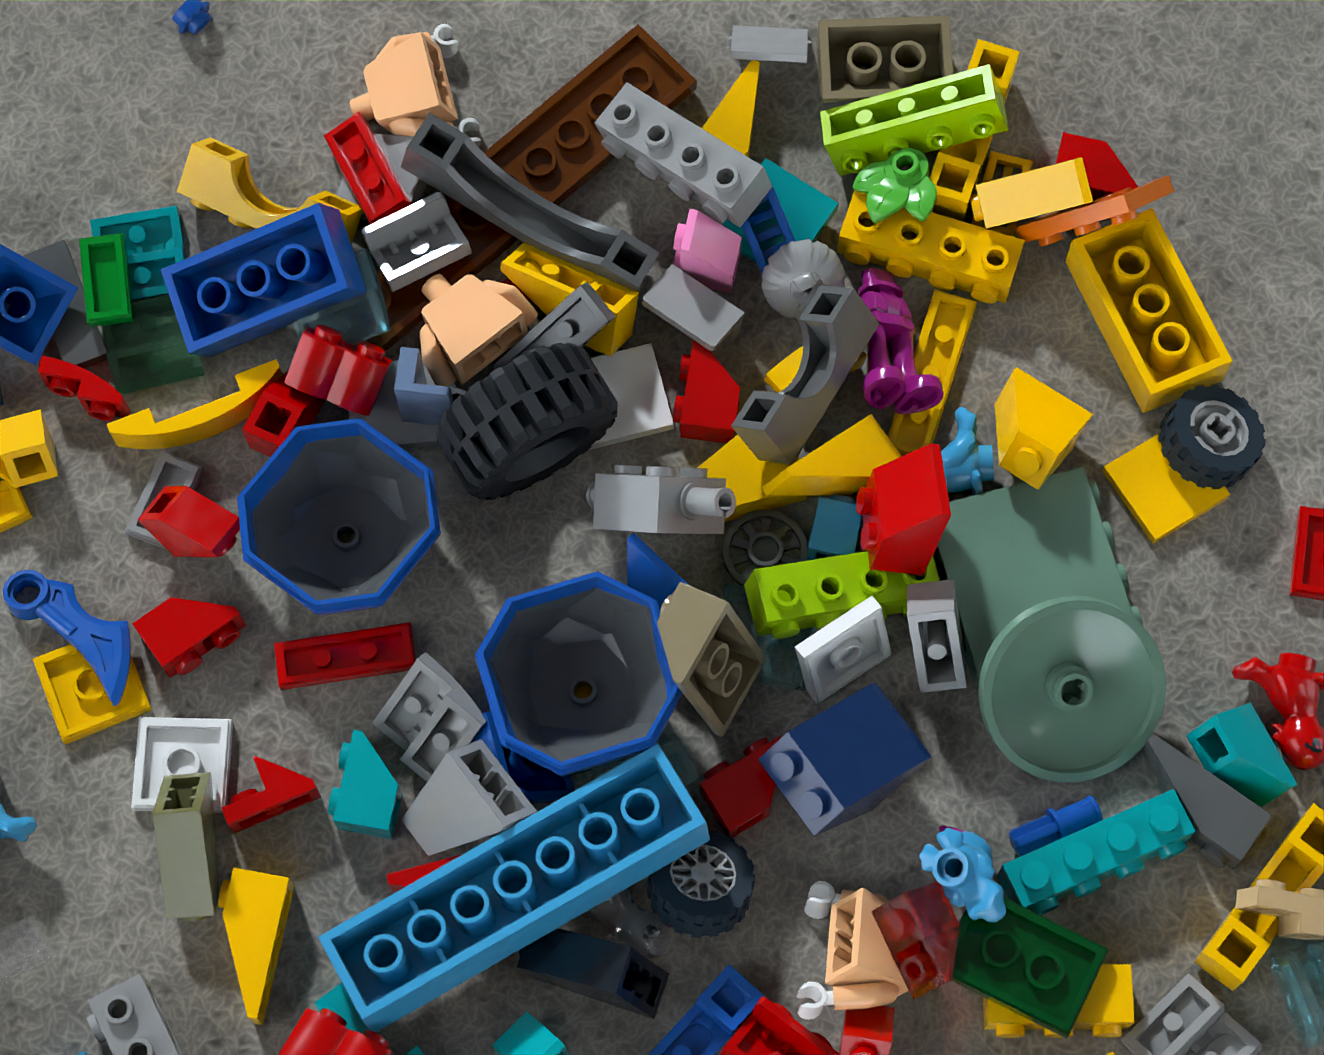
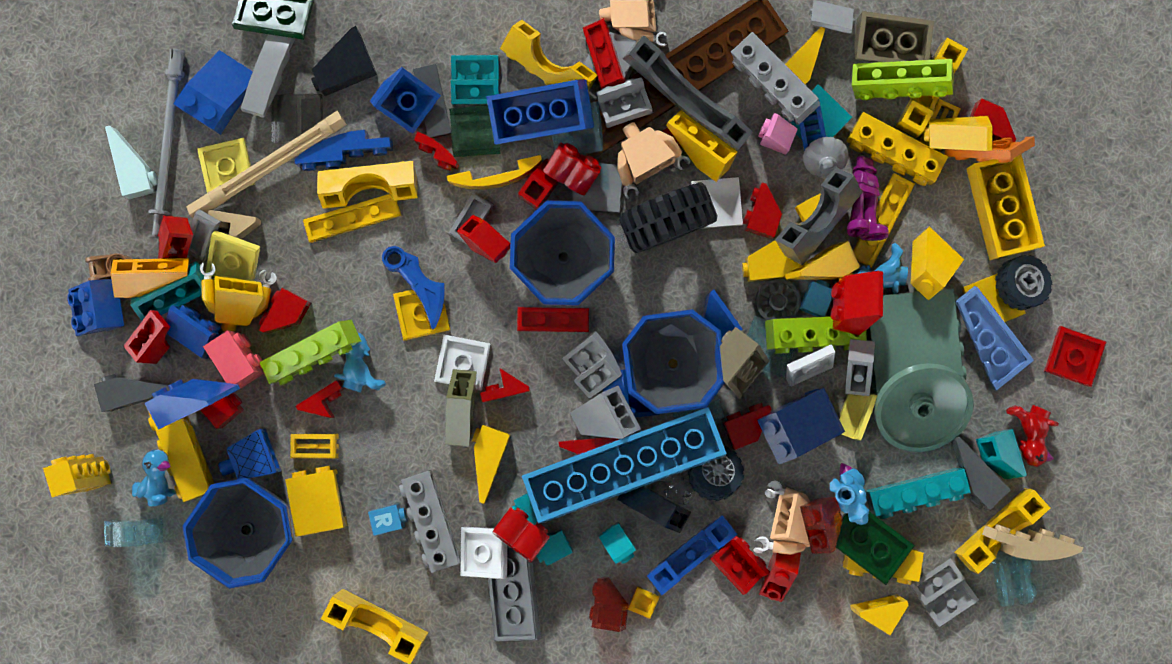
camera: 10 degrees right, 15 degrees up
(106, 280) = (456, 92): green tile -> none
(187, 629) = (472, 293): red slope -> none
(368, 792) = (555, 394): teal slope -> none
(415, 398) = (608, 191): sand blue panel -> none
(572, 321) = (688, 171): dark grey plate -> none
(660, 500) = (730, 272): light grey brick -> none
(694, 309) = (764, 164): light grey panel -> none
(893, 188) = (885, 118): bright green plate -> none
(949, 732) = (856, 415): none -> light yellow panel
(1055, 825) = (899, 472): blue axle -> none
(1182, 552) = (994, 341): none -> medium blue wing

